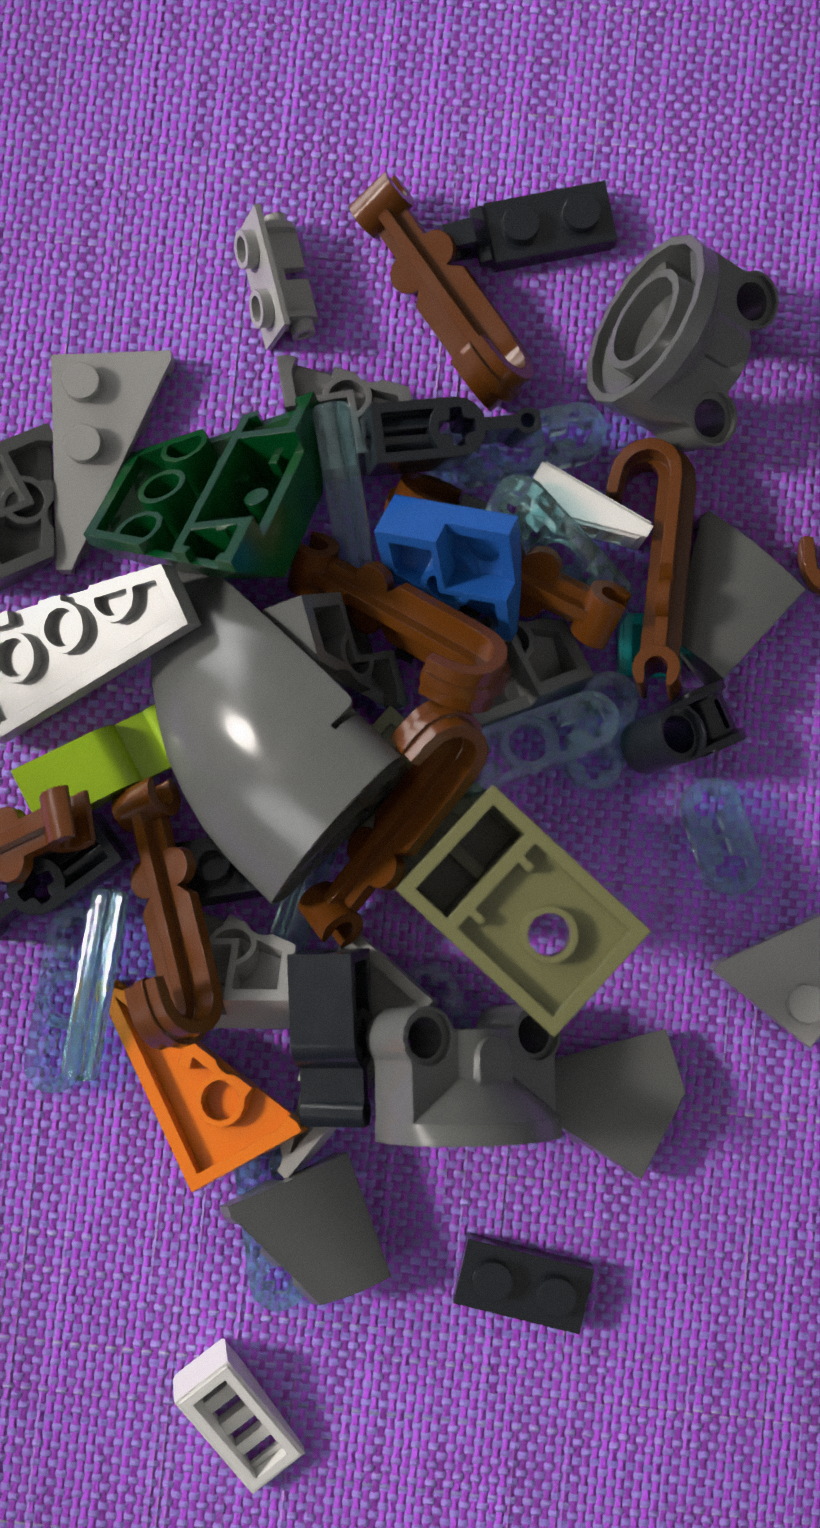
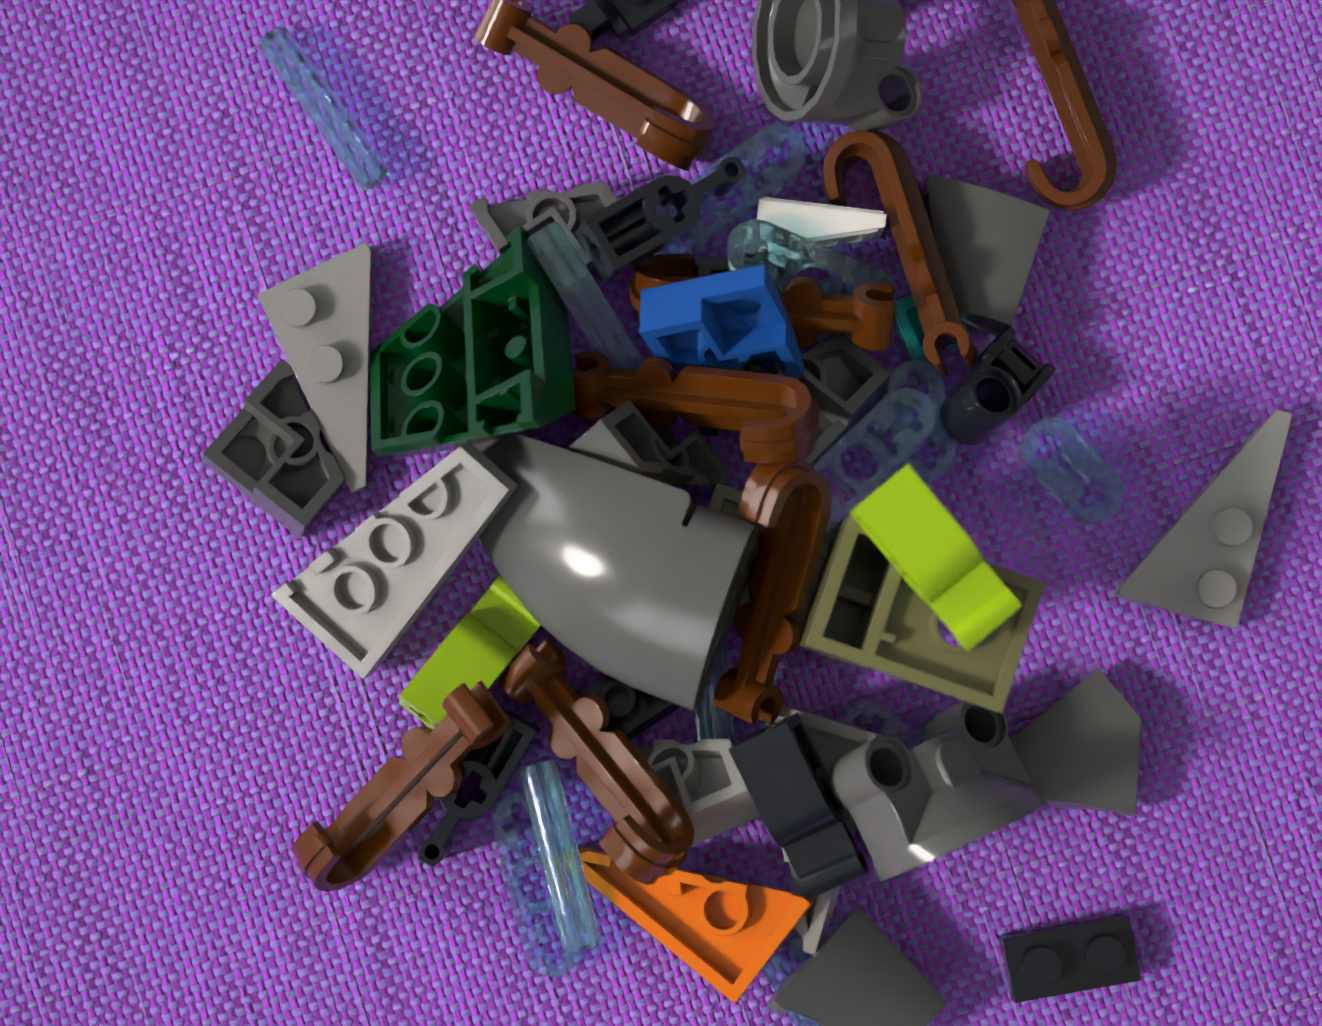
camera: 20 degrees left, 0 degrees up
(186, 215) = (324, 108): none -> clear light blue axle
(267, 251) = (413, 110): light grey hinge -> none
(556, 860) = (935, 557): none -> lime piece

